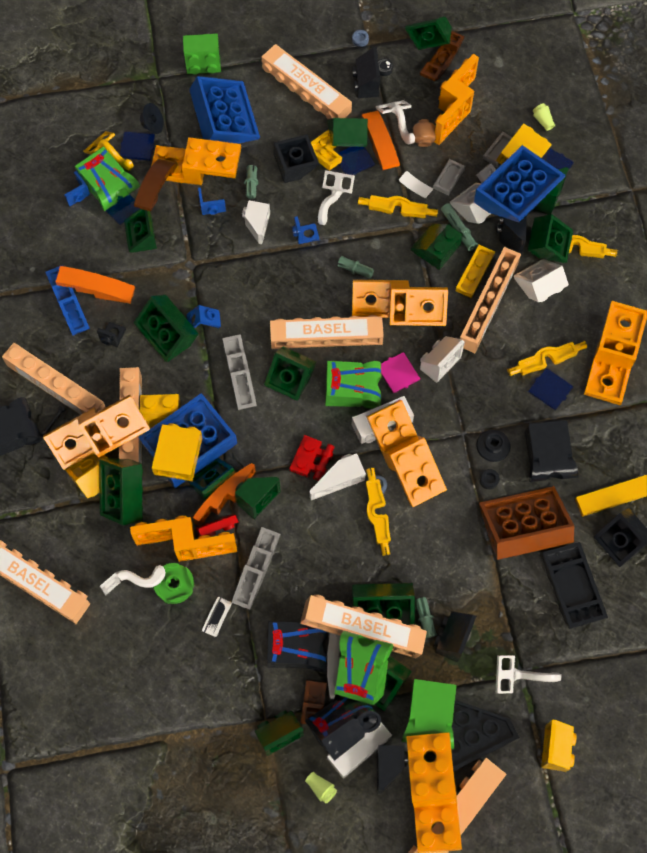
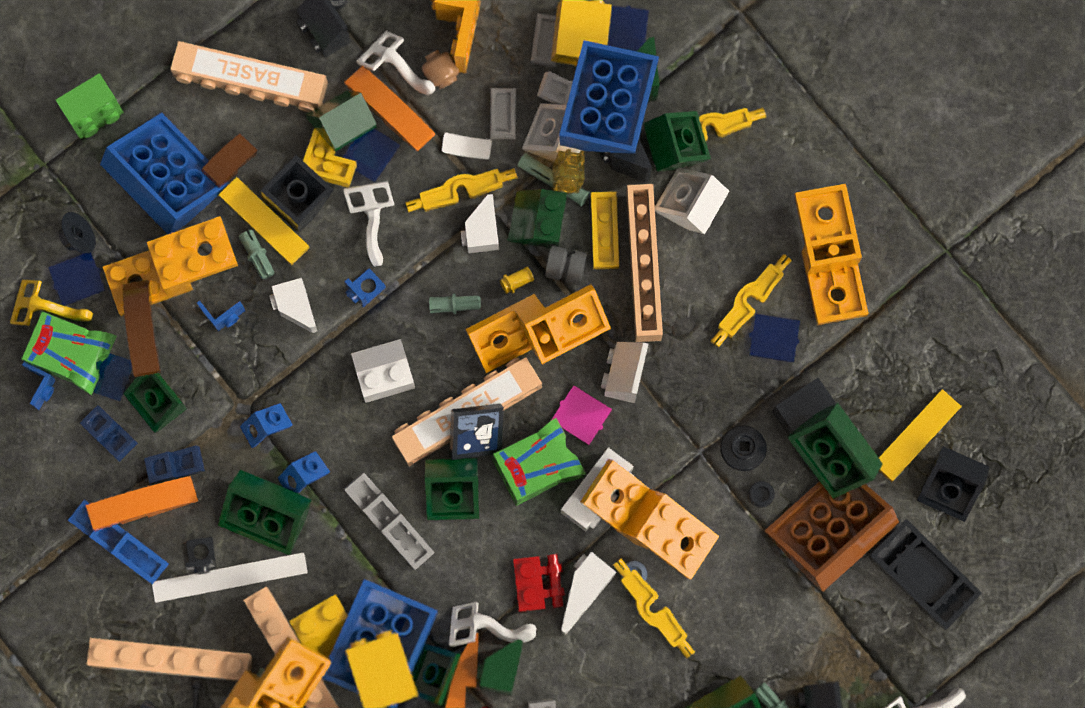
camera: 30 degrees left, 10 degrees up
(101, 238) = (108, 433): none -> dark blue slope
(121, 356) = (229, 577): none -> white sticker
(132, 275) = (174, 464): none -> dark blue slope
(198, 276) = (266, 423): none -> blue bracket
(267, 122) = (229, 160): none -> reddish brown slope
(267, 167) = (264, 221): none -> yellow tile
(285, 483) = (477, 621): none -> white piece
(287, 285) = (383, 370): none -> white slope
(324, 343) = (476, 431): none -> tile
(397, 232) = (481, 228): none -> white slope
(400, 272) = (516, 280): none -> yellow pin
(437, 276) = (566, 265): none -> dark grey wheel
(471, 221) = (568, 171): none -> clear yellow brick
(554, 470) = (836, 451): none -> dark green slope

